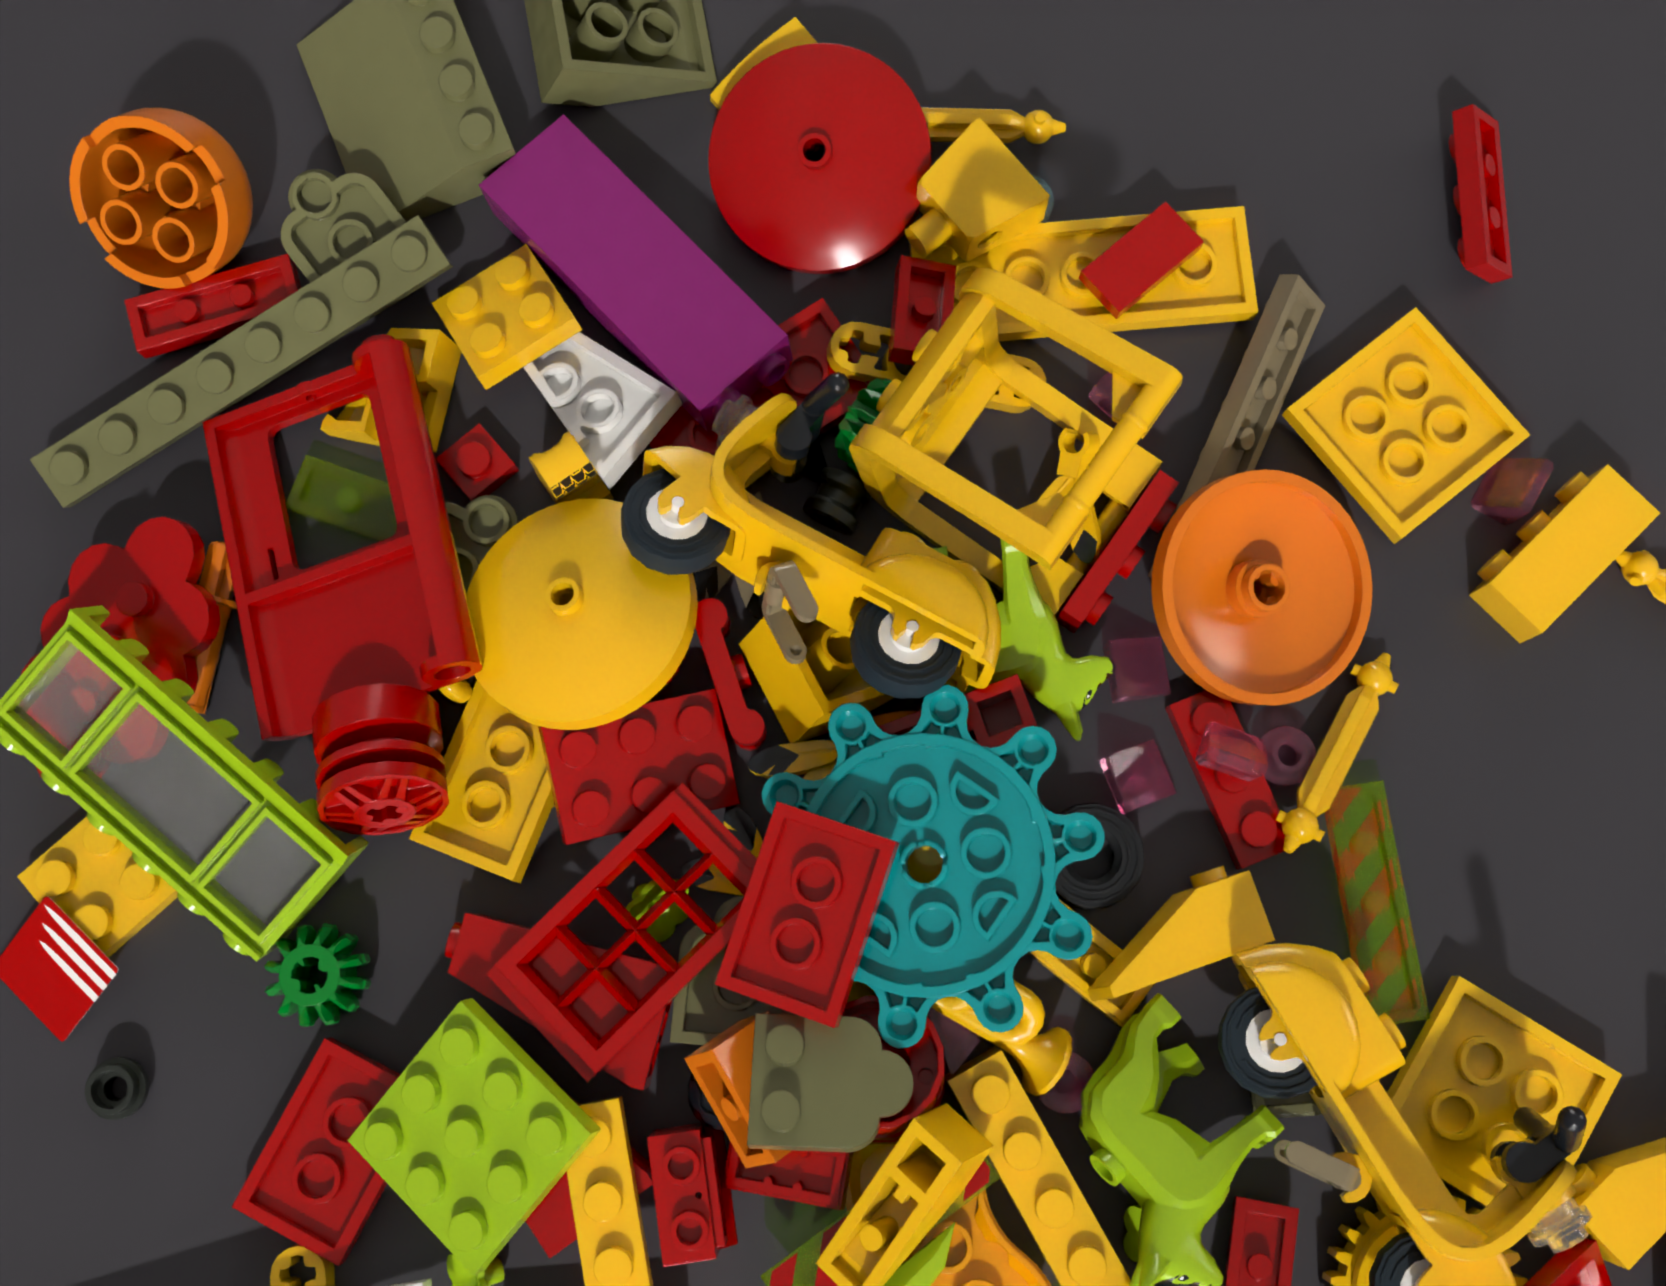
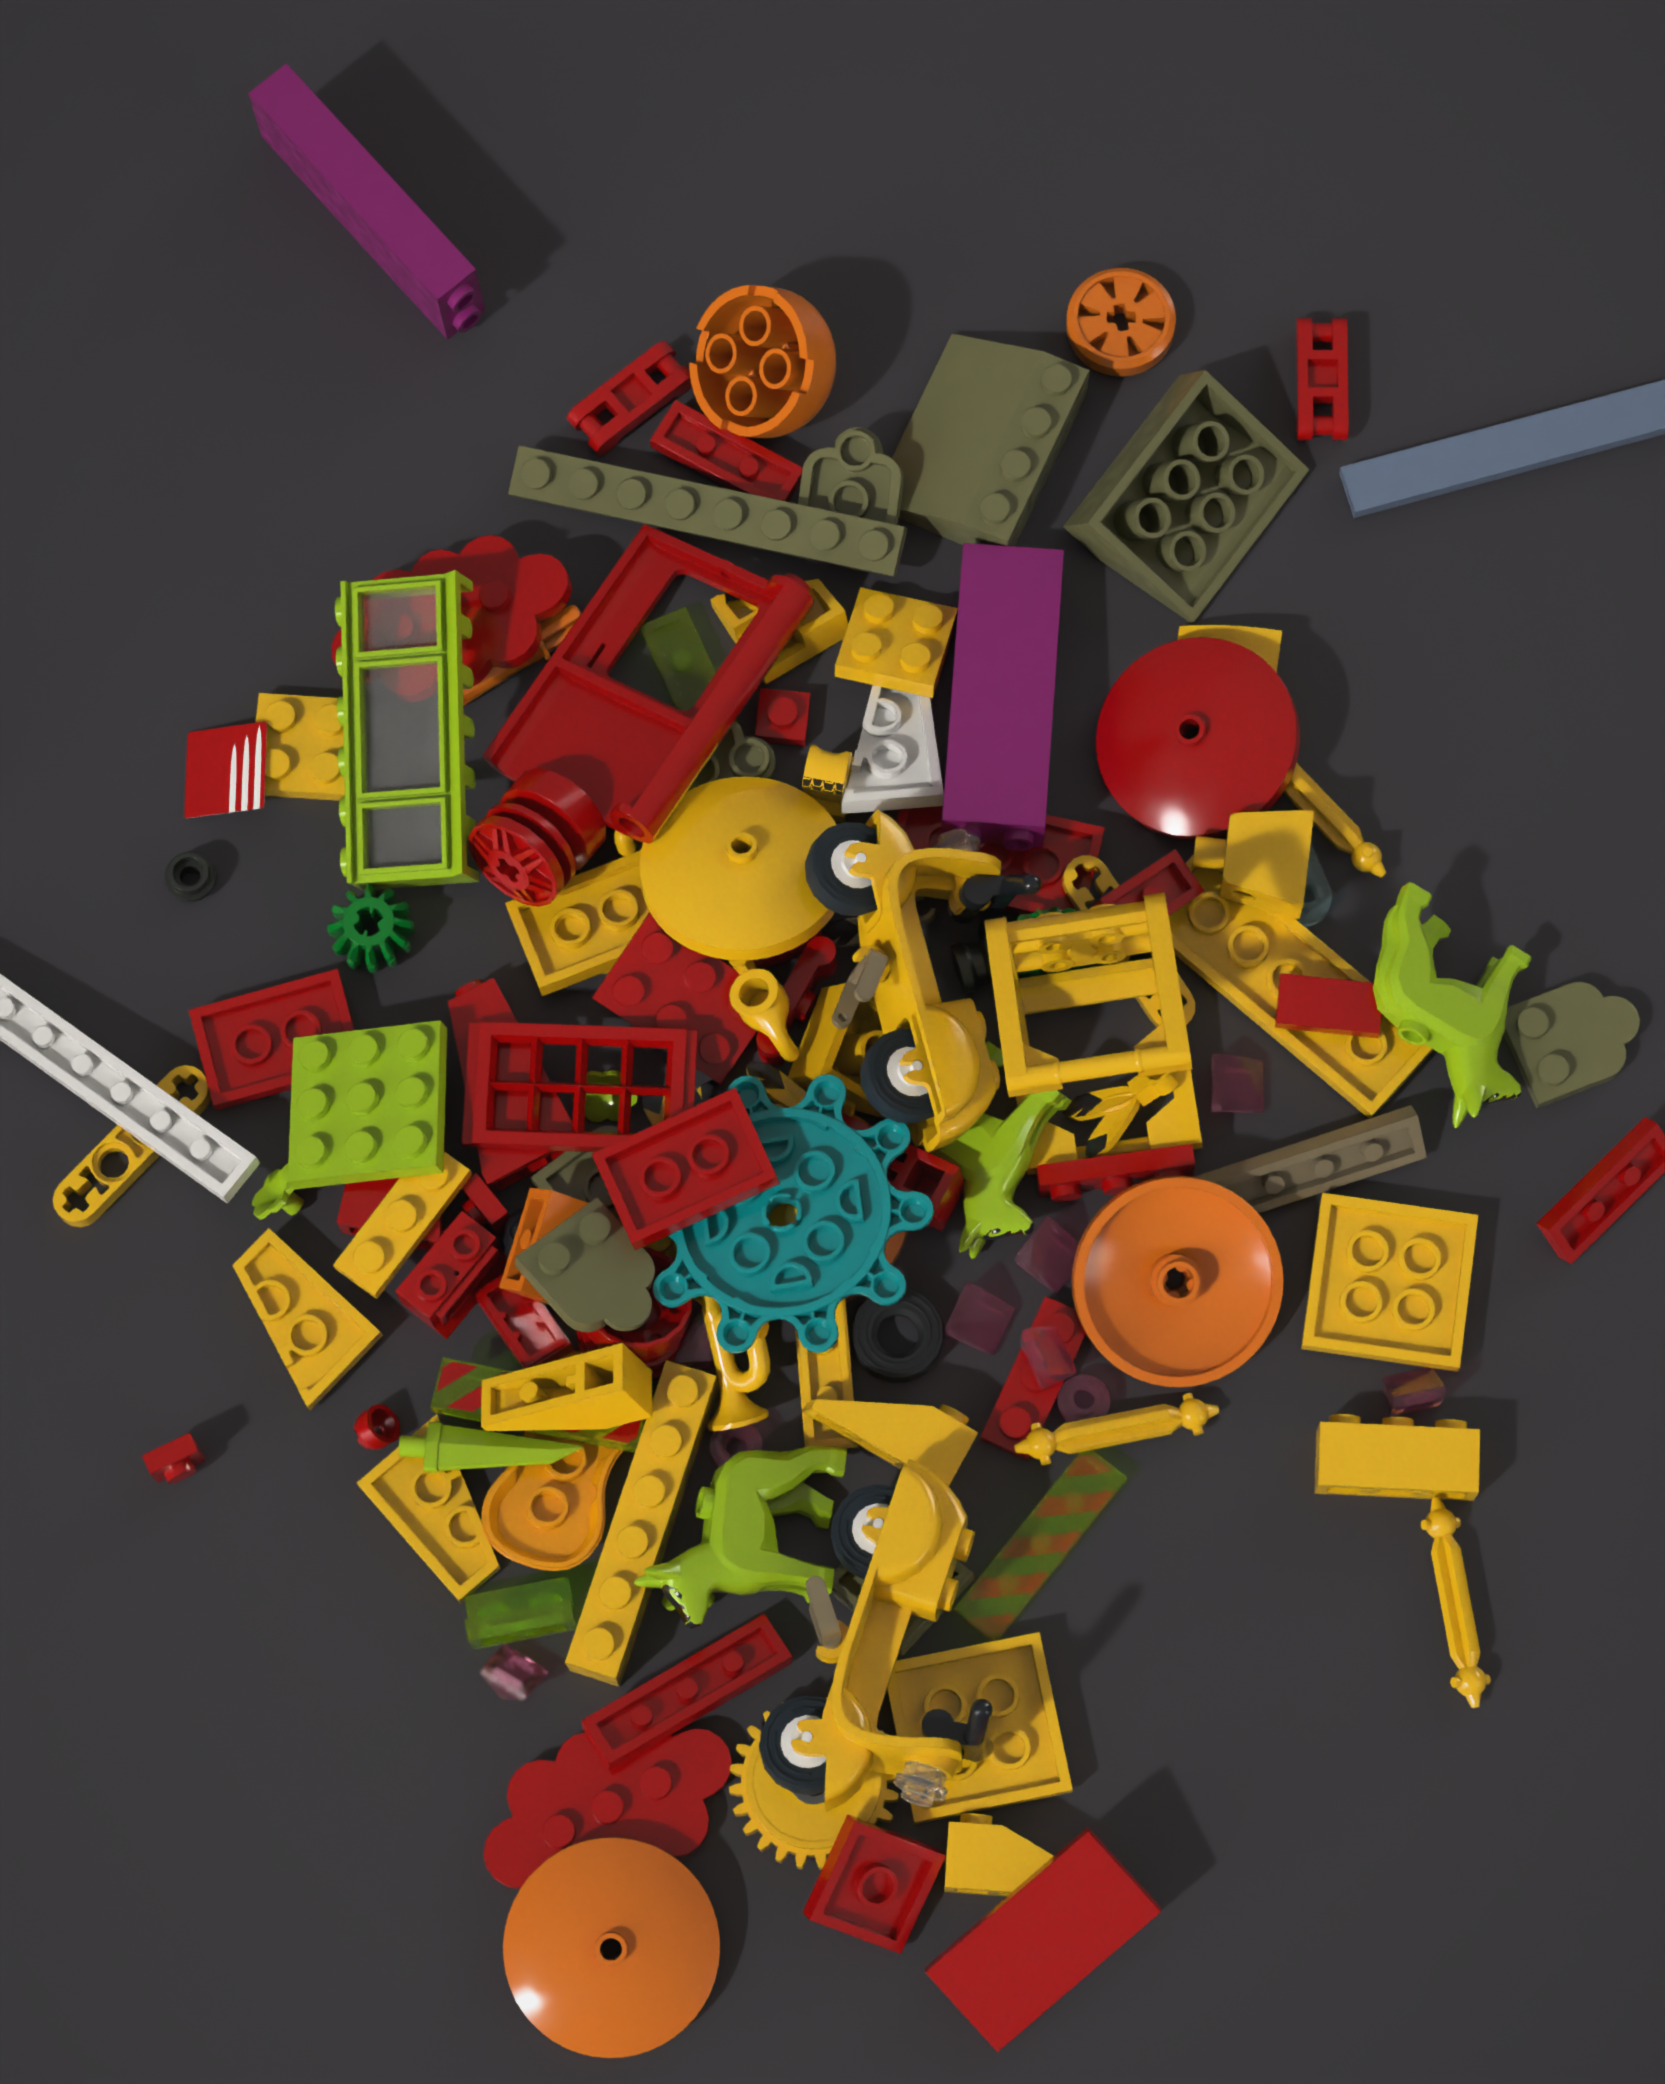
camera: 50 degrees right, 5 degrees down
(85, 335) = (630, 397): none -> red plate
(655, 1107) = (483, 1205): none -> red plate
(716, 707) = (763, 1005): none -> yellow piece
(1239, 177) = (1446, 1013): none -> lime animal
(1326, 116) = (1569, 1040): none -> olive plate

